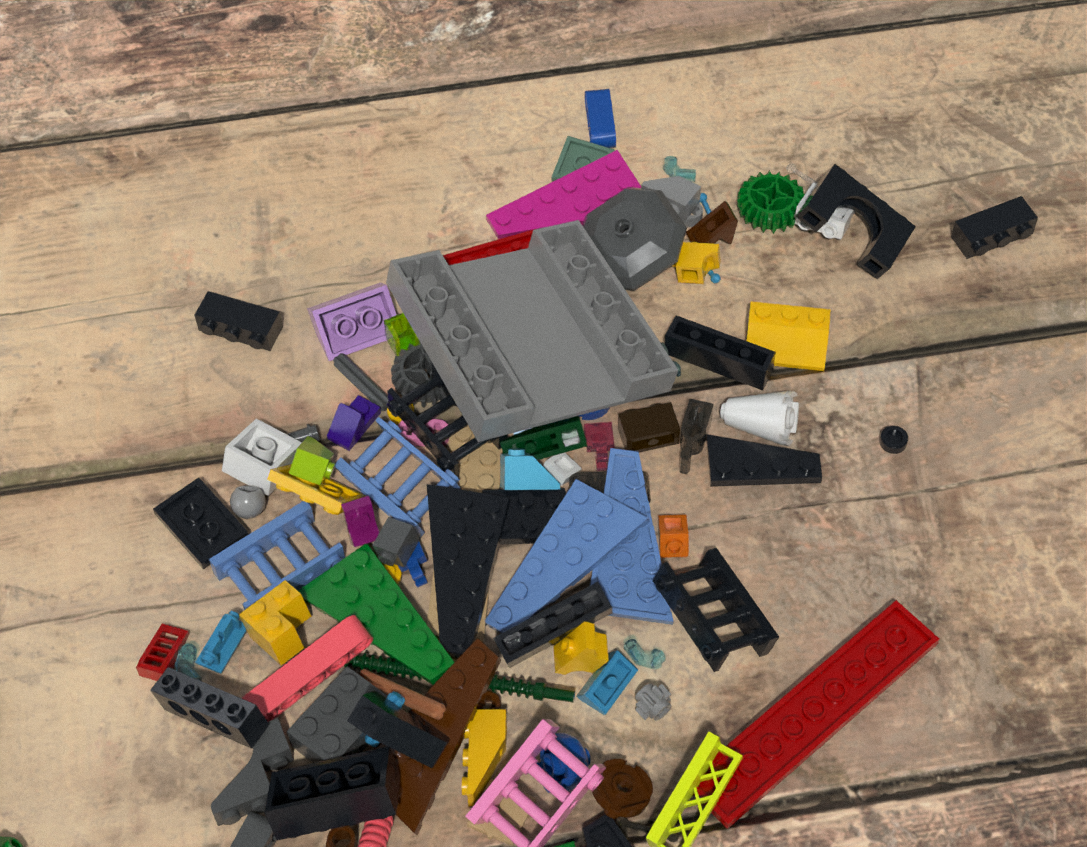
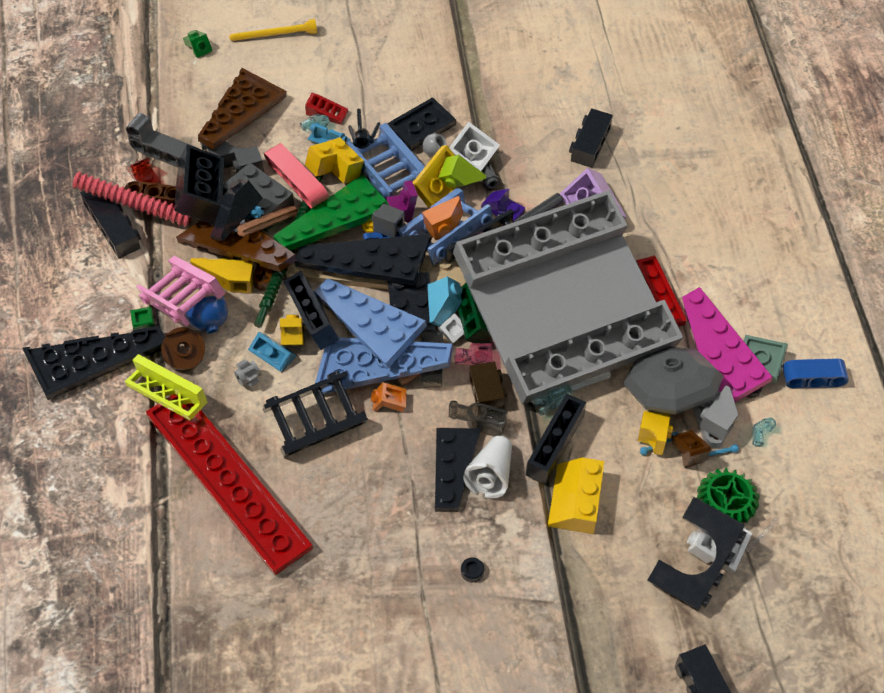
camera: 90 degrees right, 0 degrees up
(153, 760) = (240, 105): none -> reddish brown wing
(210, 707) = (272, 124): black brick -> none
(236, 586) = (362, 137): none -> black plant
(402, 470) = (443, 217): none -> orange slope
(641, 658) = (285, 376): clear light blue arm -> none

